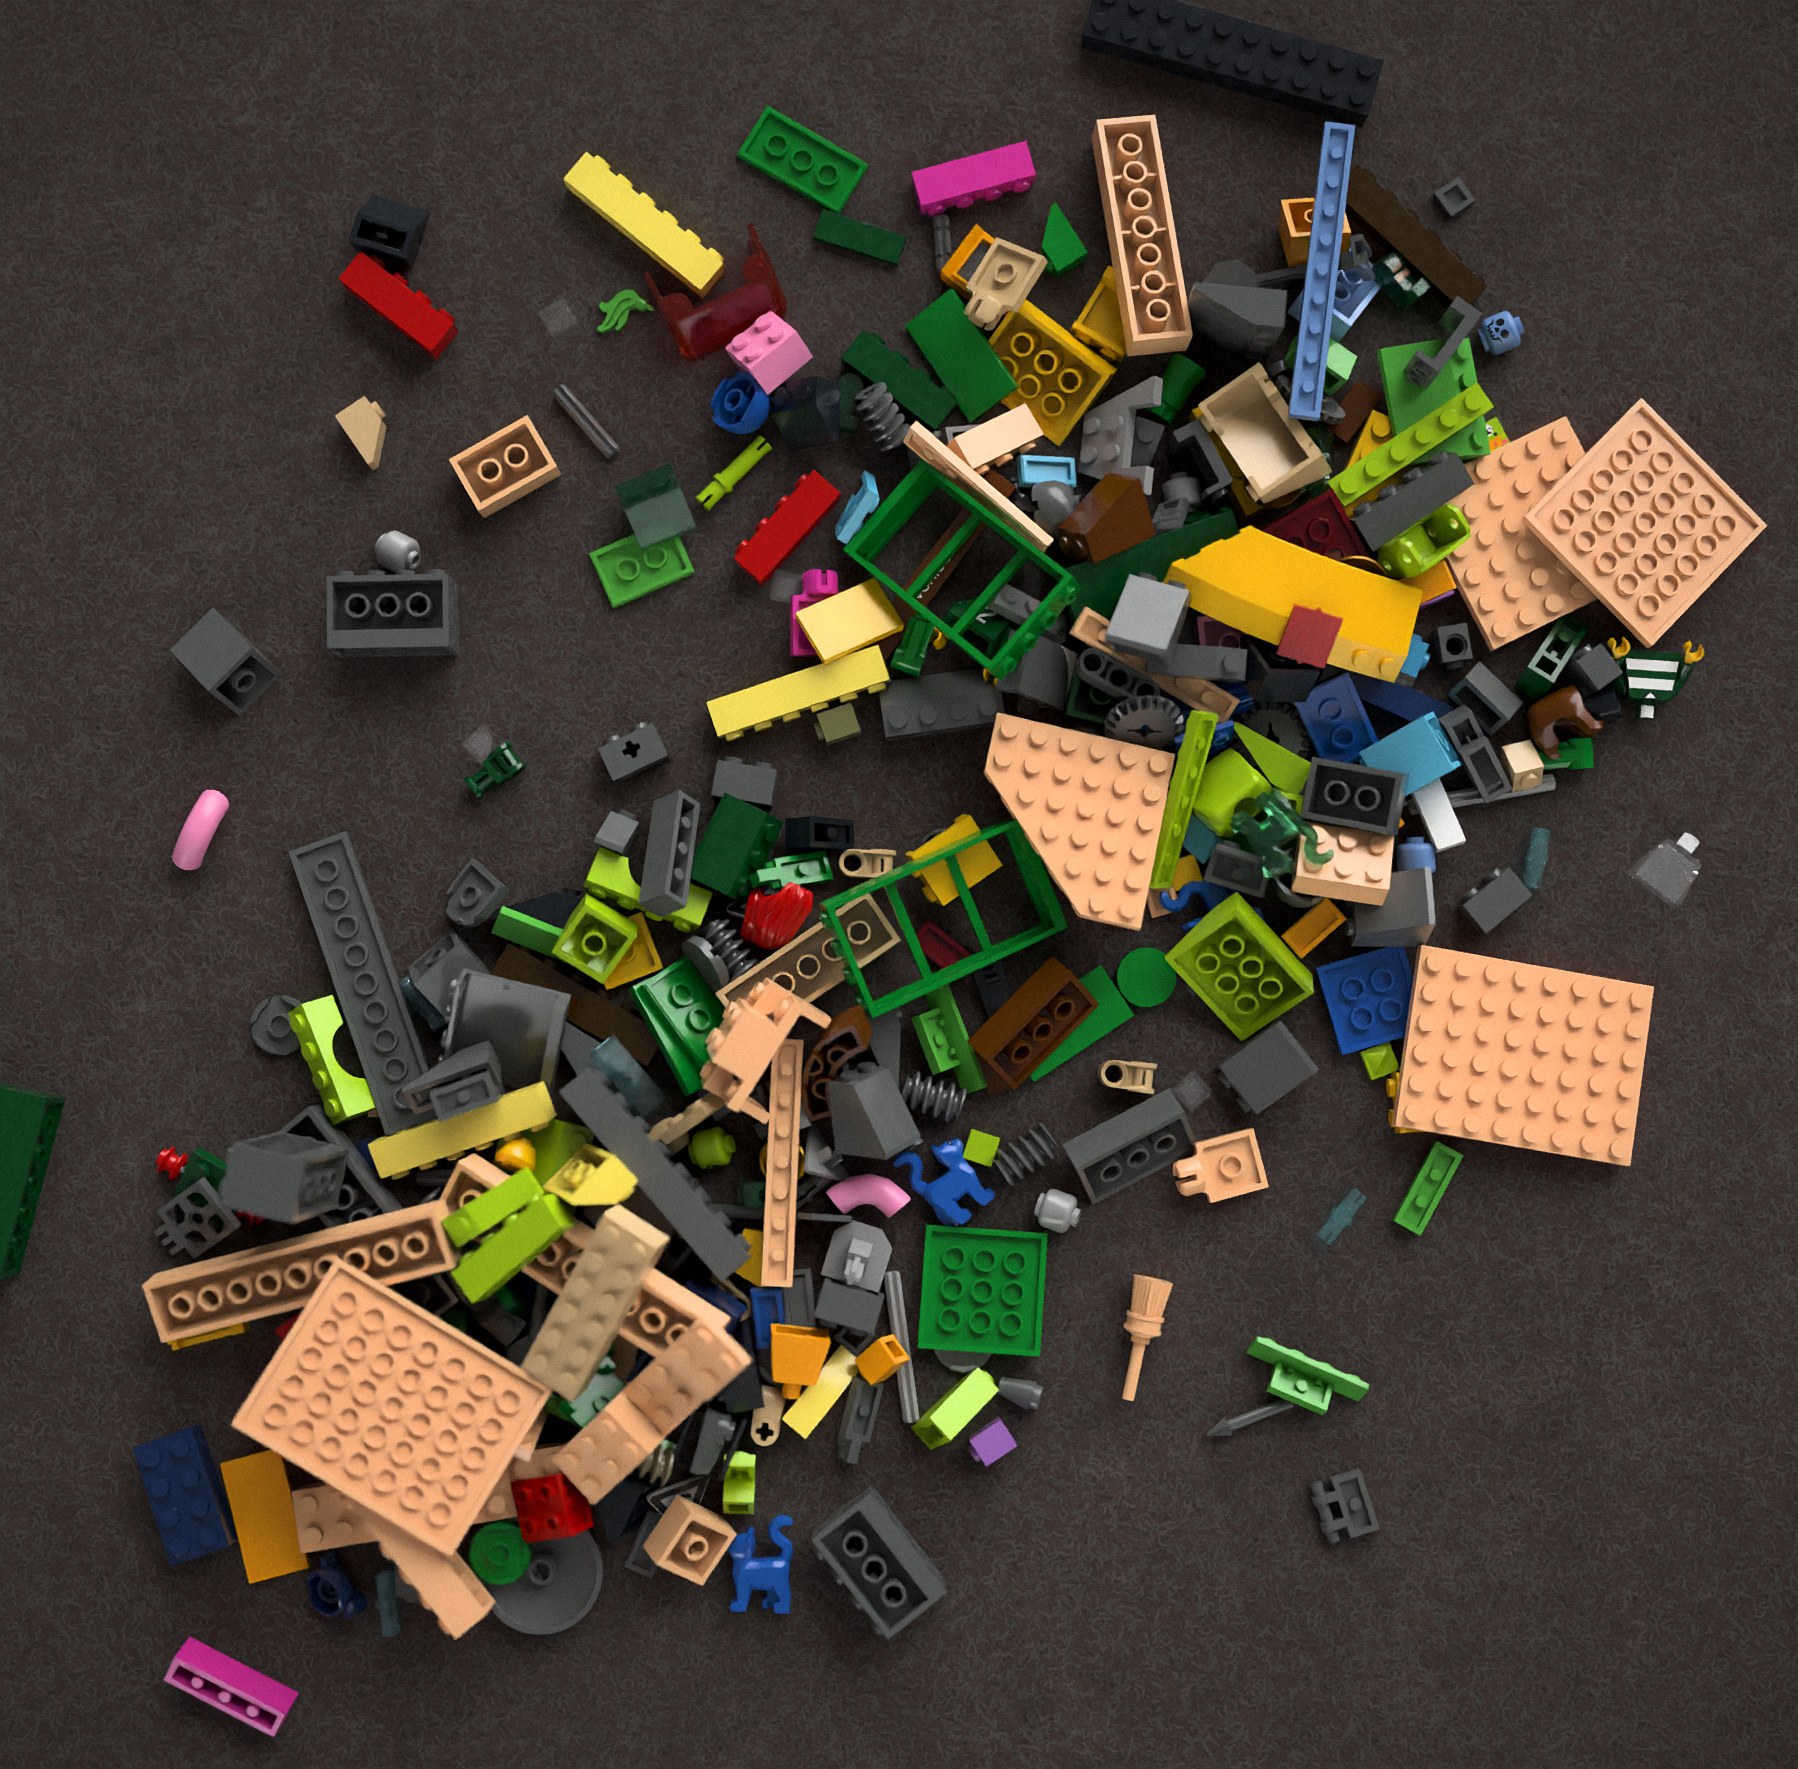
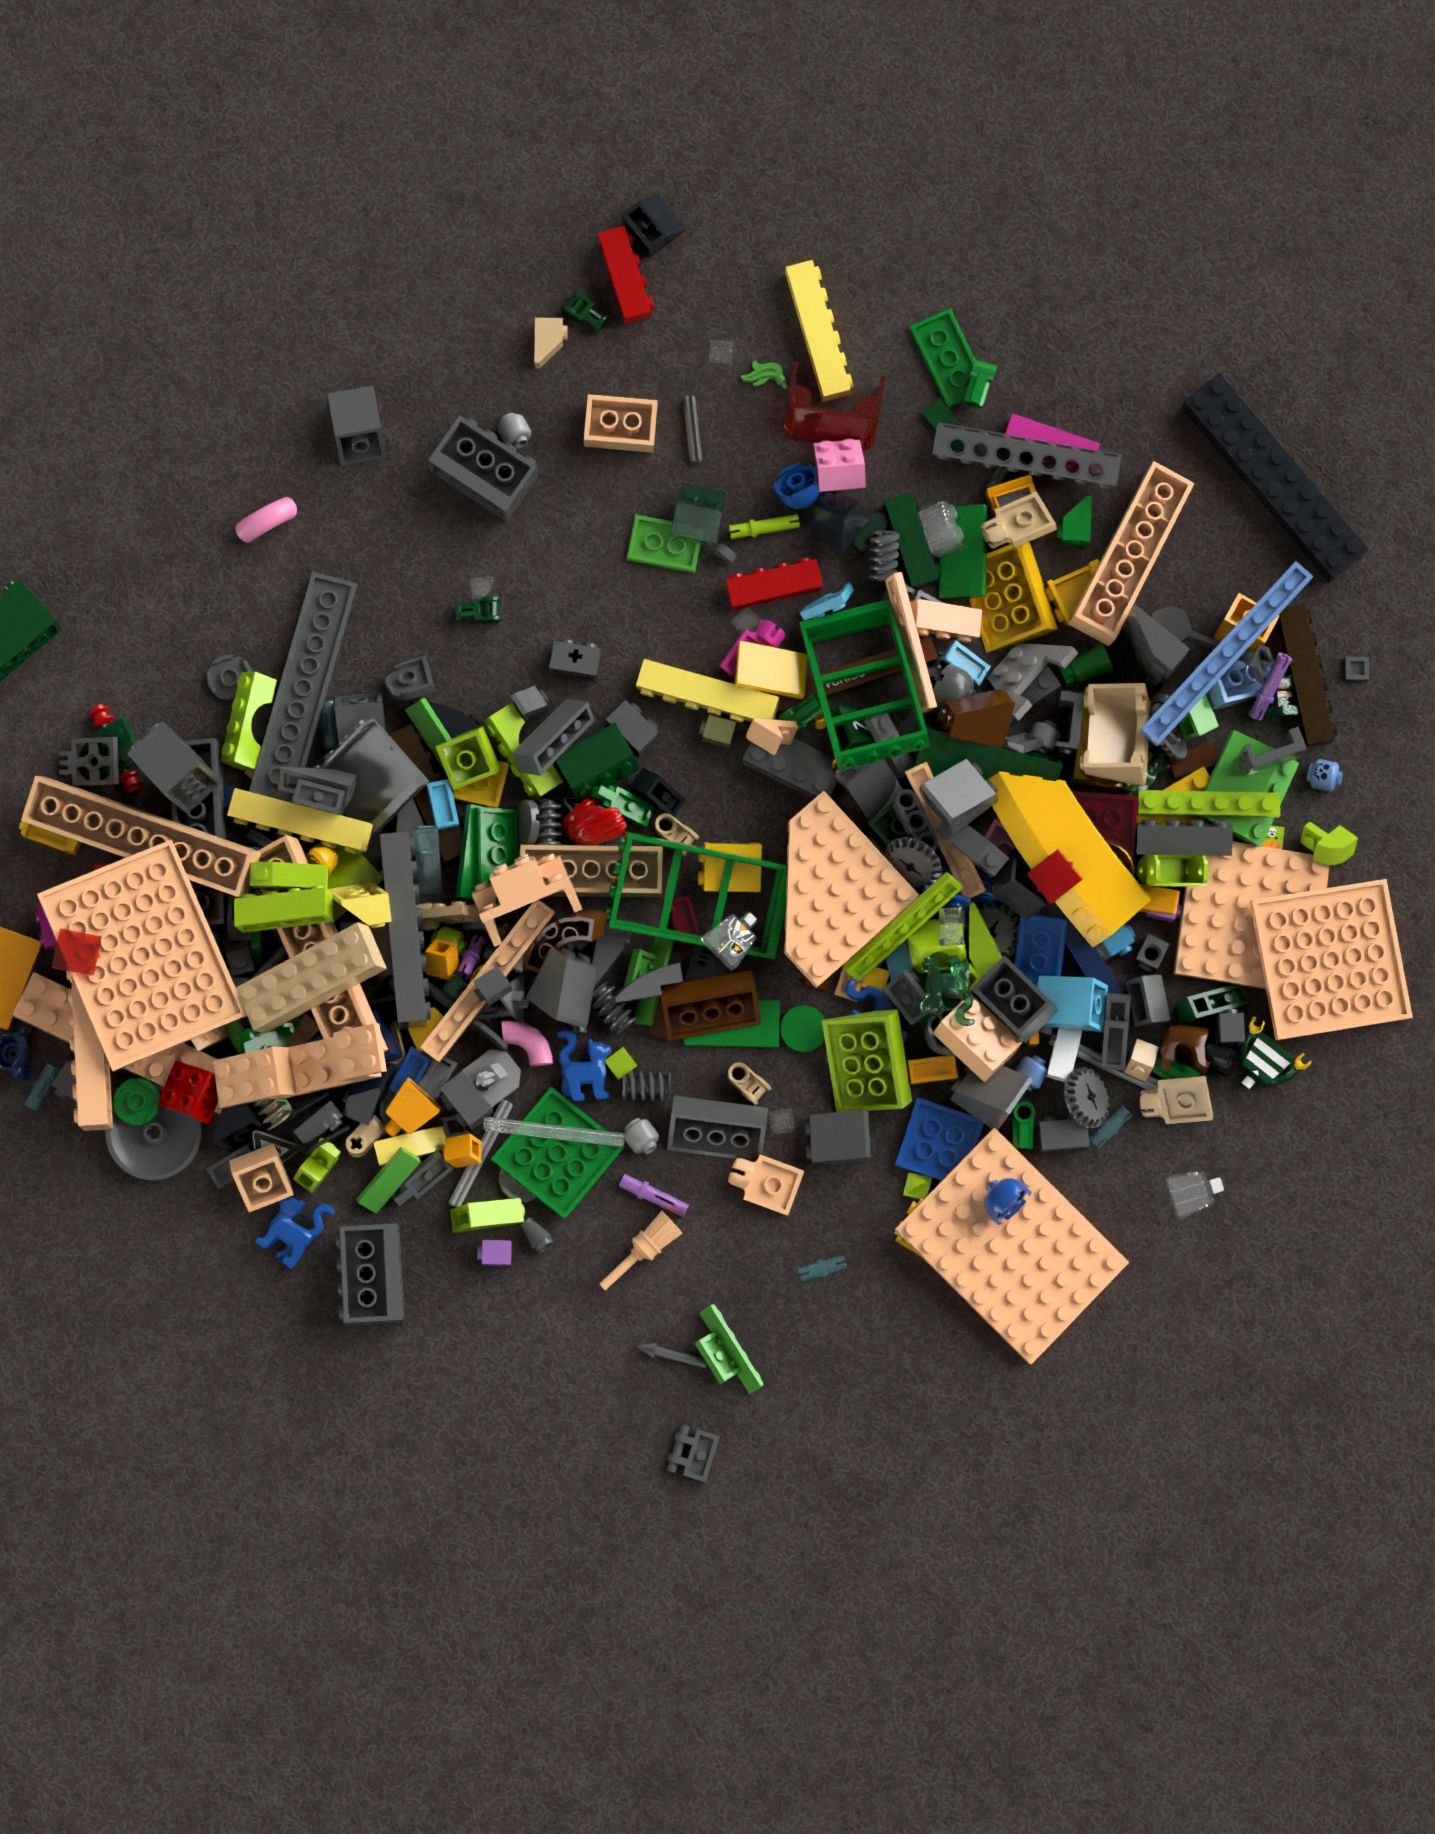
camera: 30 degrees right, 5 degrees down
(319, 1457) = (76, 952): none -> clear red piece
(380, 373) = (583, 310): none -> dark green connector
(602, 1006) = (443, 804): none -> medium azure tile
(713, 530) = (725, 553): none -> dark grey tile
(717, 1173) = (442, 959): none -> light orange brick
(746, 1147) = (471, 957): none -> medium lavender pin
(793, 1169) = (492, 986): none -> dark grey brick
(825, 1446) = (388, 1180): none -> bright green tile
(853, 156) = (980, 379): none -> green piece
(897, 689) = (771, 733): none -> light nougat slope
(922, 346) = (941, 528): none -> clear brick
(955, 1047) = (649, 984): none -> dark grey slope
(964, 1272) = (554, 1131): none -> clear axle
(1010, 939) = (731, 939): none -> clear torso
(1024, 164) = (1039, 449): none -> dark grey brick
(1107, 1264) = (647, 1192): none -> medium lavender pin
(1234, 765) = (951, 926): none -> clear slope
(1383, 271) = (1266, 694): none -> medium lavender pin
(1427, 1187) = (890, 1288): bright green plate -> none
(1449, 924) = (1022, 1129): none -> green piece
(1481, 833) = (1077, 1087): none -> dark grey gear
(1488, 1014) = (1005, 1198): none -> blue cylinder
(1560, 406) = (1331, 847): none -> lime brick
(1590, 782) = (1178, 1100): none -> tan plate

